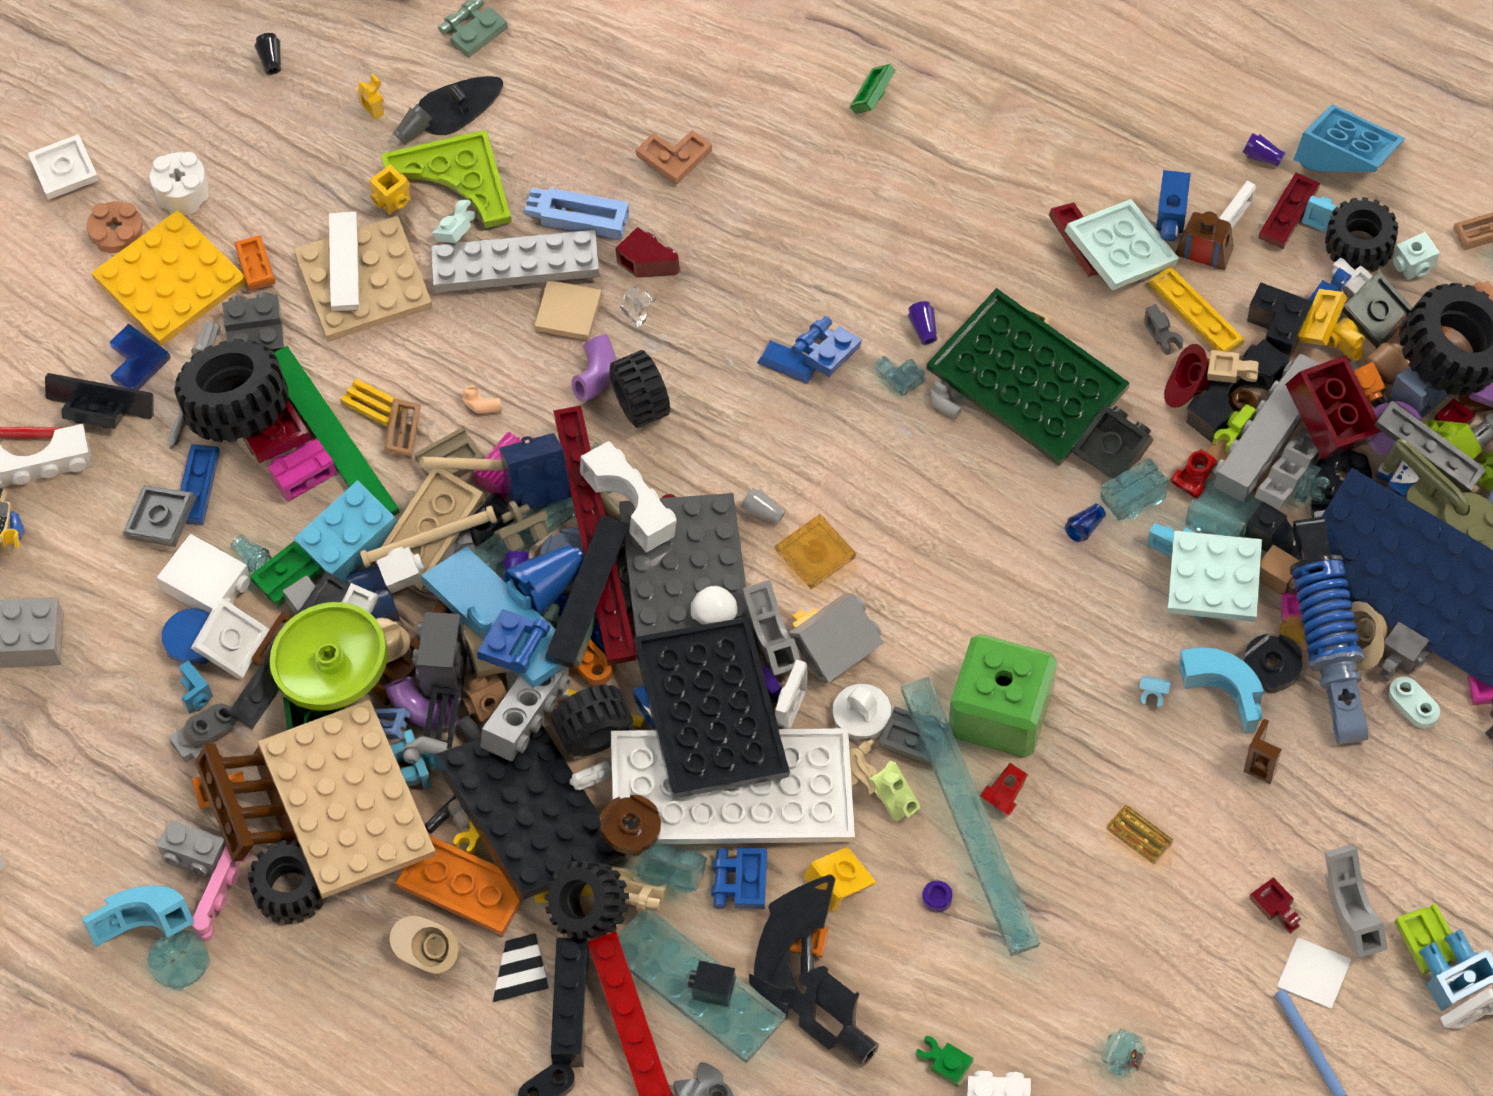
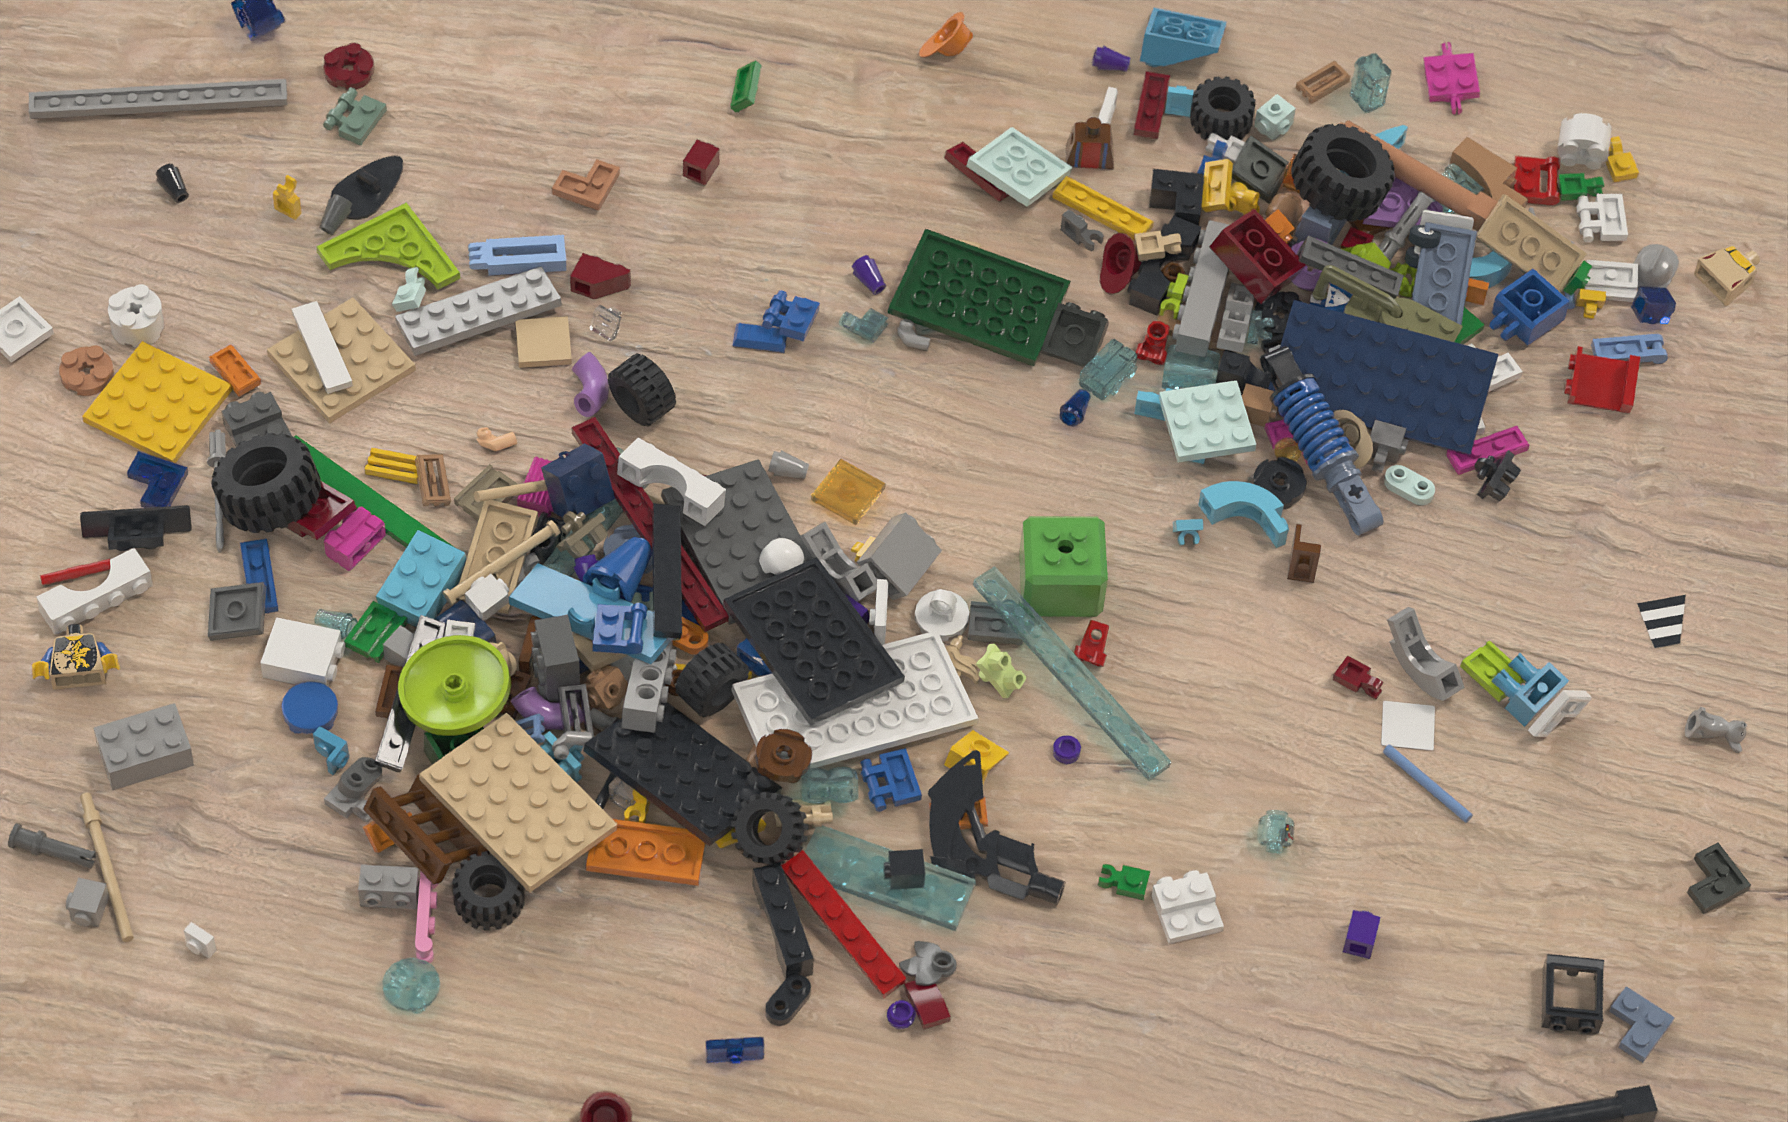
camera: 25 degrees left, 5 degrees down
(138, 907) = (366, 945): medium azure arch -> none
(230, 638) = (349, 698): white plate -> none
(389, 190) = (339, 275): yellow brick -> none
(424, 944) = (635, 907): tan piece -> none
(520, 969) = (724, 909): sticker -> none
(591, 775) = (726, 728): white piece -> none
(795, 159) = (701, 162): none -> dark red brick
(1102, 88) = (949, 39): none -> orange piece
(1139, 834) = (1220, 652): clear yellow tile -> none
(1172, 204) = (1054, 129): blue torso -> none

